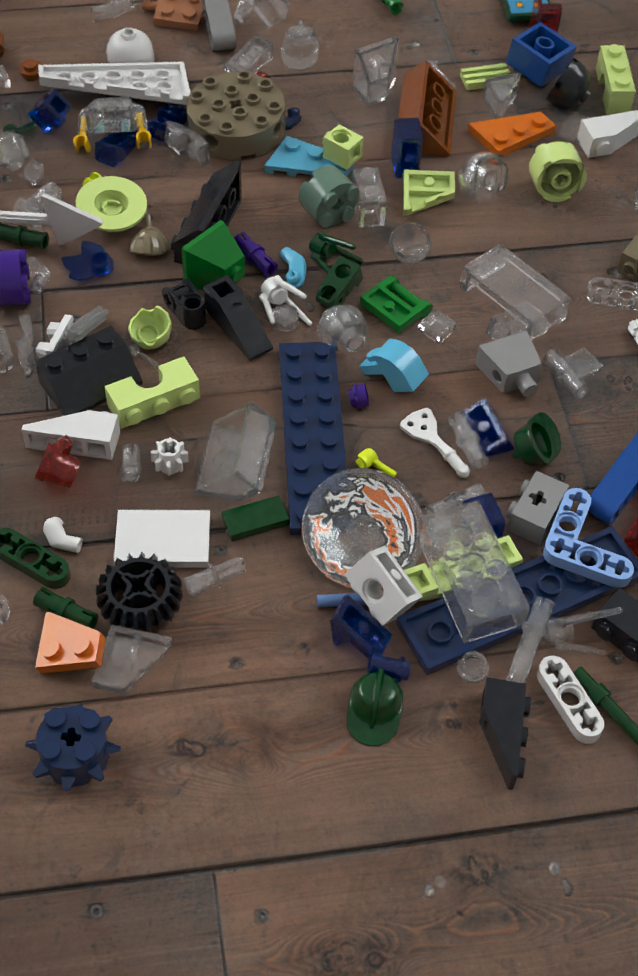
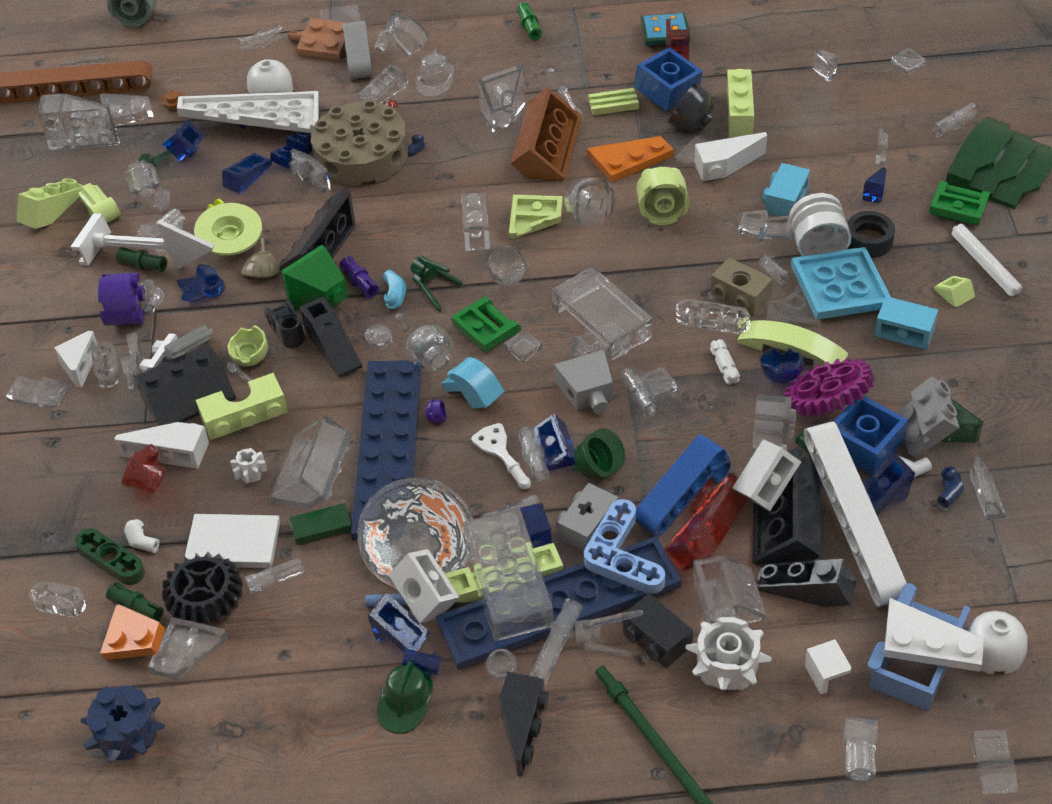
camera: 10 degrees right, 5 degrees down
(111, 116) = (240, 145): clear torso -> none
(130, 470) = (211, 477): clear pin -> none
(275, 291) = (374, 313): white plant -> none
(298, 157) = (426, 185): medium azure wing -> none
(329, 196) = (434, 221): sand green brick -> none
(339, 283) = (432, 304): dark green leg -> none
(342, 146) = (455, 173): yellowish green brick -> none
(369, 458) = (435, 470): neon yellow hand -> none
(406, 145) = (517, 171): clear blue brick -> none
(500, 93) = (624, 117): clear slope -> none
(570, 714) = (588, 708): white beam -> none

